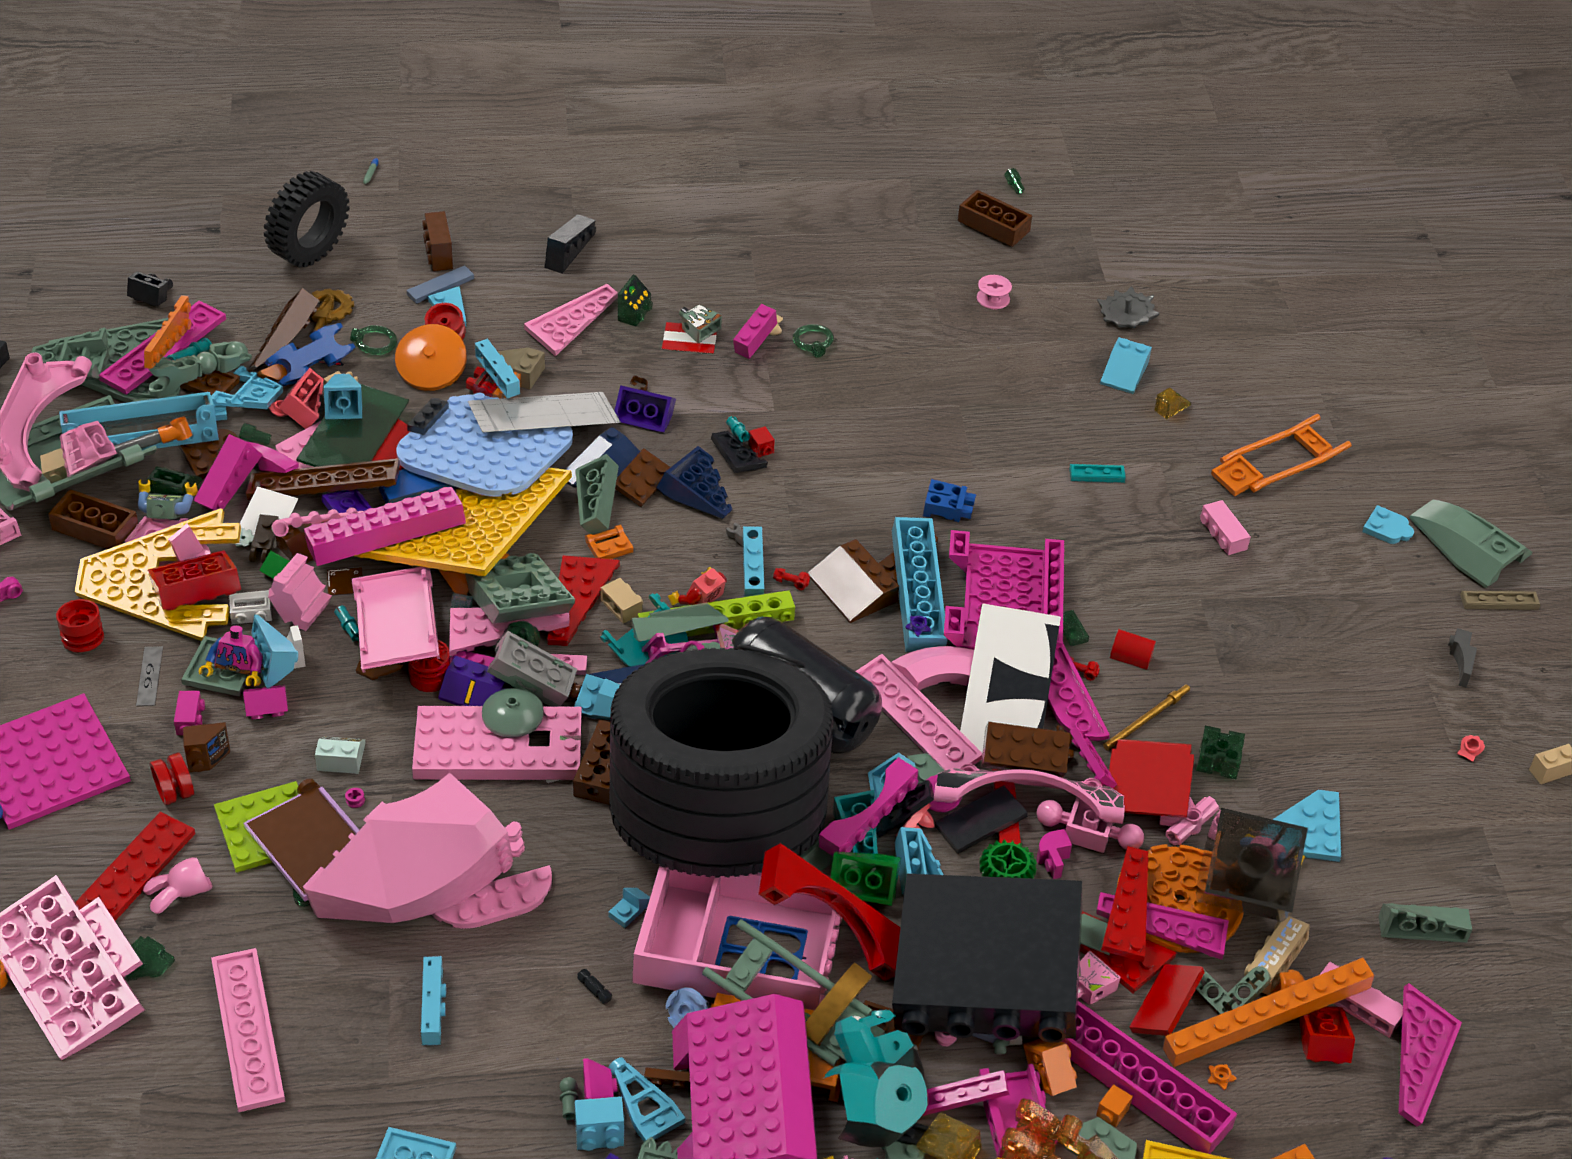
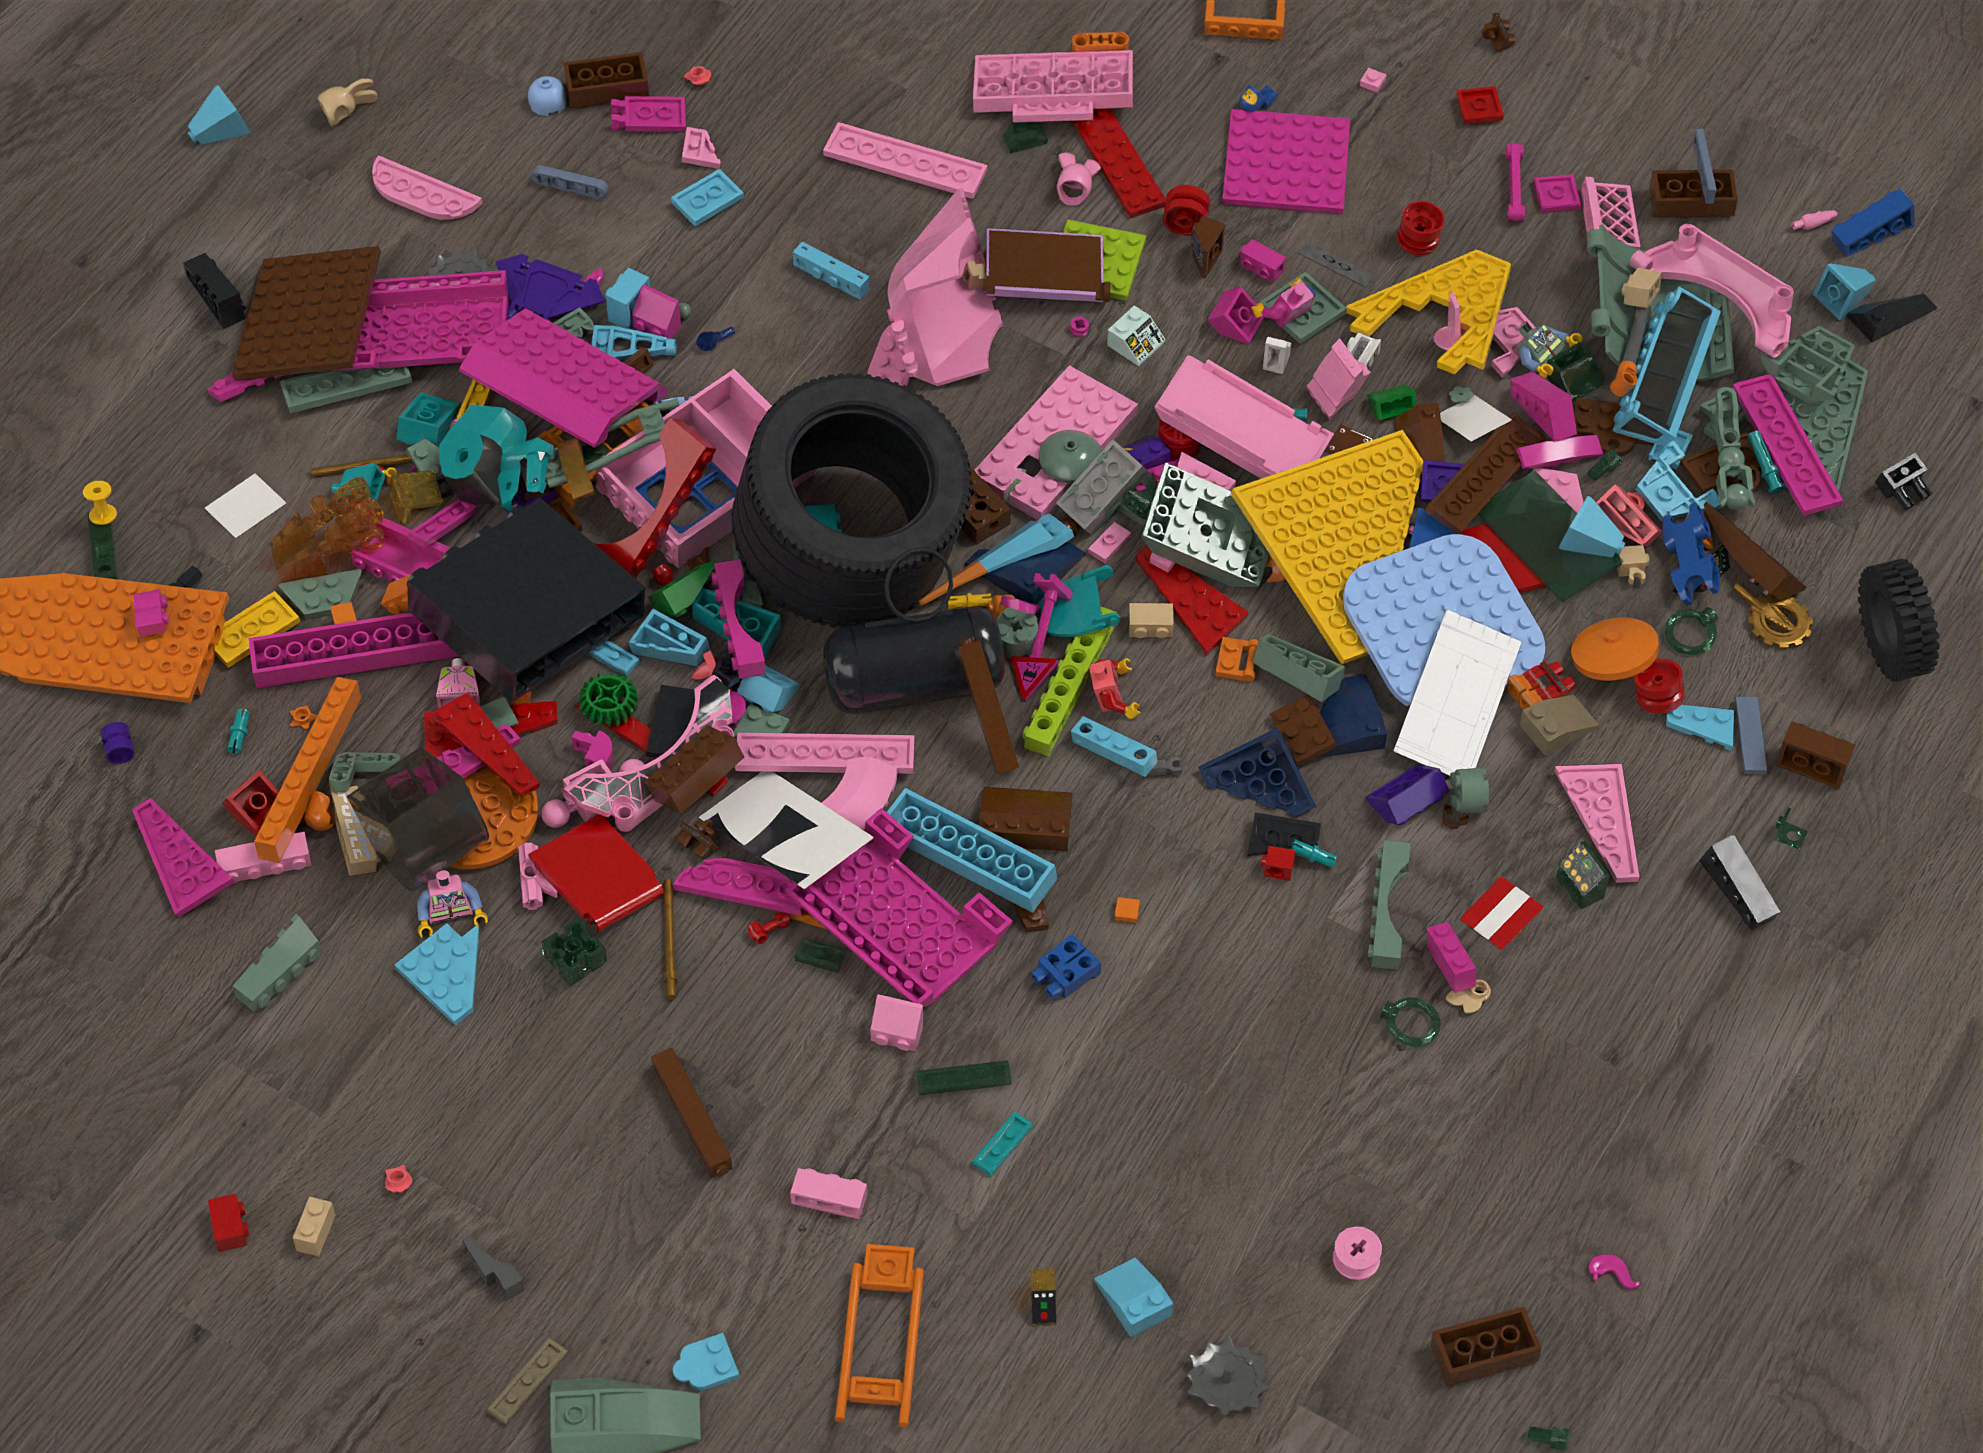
camera: 130 degrees right, 10 degrees up
(85, 447) = (1625, 285): bright pink slope -> none
(92, 520) = (1558, 292): reddish brown brick -> none
(170, 333) = (1793, 446): orange wing -> none
(194, 580) = (1413, 316): red slope -> none
(263, 537) = (1448, 405): dark brown hinge -> none
(276, 649) = (1264, 323): medium azure wedge -> none
(280, 527) = (1425, 433): bright pink bar -> none
(384, 525) = (1368, 470): dark pink brick -> none
(427, 416) = (1515, 592): black plate -> none
(495, 364) = (1533, 680): medium azure piece -> none
(504, 240) = (1785, 827): none -> clear green bracket
(587, 1044) = (708, 340): none -> clear blue plate
(594, 986) = (758, 375): black axle -> none
(617, 372) = (1470, 790): none -> sand green brick
(676, 621) = (1068, 617): sand green wedge -> none
(700, 322) = (1510, 923): sand green torso -> none
(711, 390) = (1387, 942): none -> sand green arch
(800, 581) = (1064, 777): red bar -> none
(805, 615) = (987, 705): none -> reddish brown brick
(870, 499) = (1127, 910): none -> orange tile
(885, 204) = (1609, 1263): none -> dark pink piece
(918, 620) = (911, 796): dark purple plate -> none
(1077, 510) = (963, 1077): none -> clear green plate
(1080, 555) = (897, 1023): none -> bright pink slope
(1090, 754) = (656, 843): dark pink plate -> none
(1132, 649) = (750, 984): red brick -> none
(1167, 999) = (389, 718): red tile -> none
(1252, 624) = (692, 1113): none -> reddish brown brick
(1282, 1105) = (238, 731): none -> teal pin

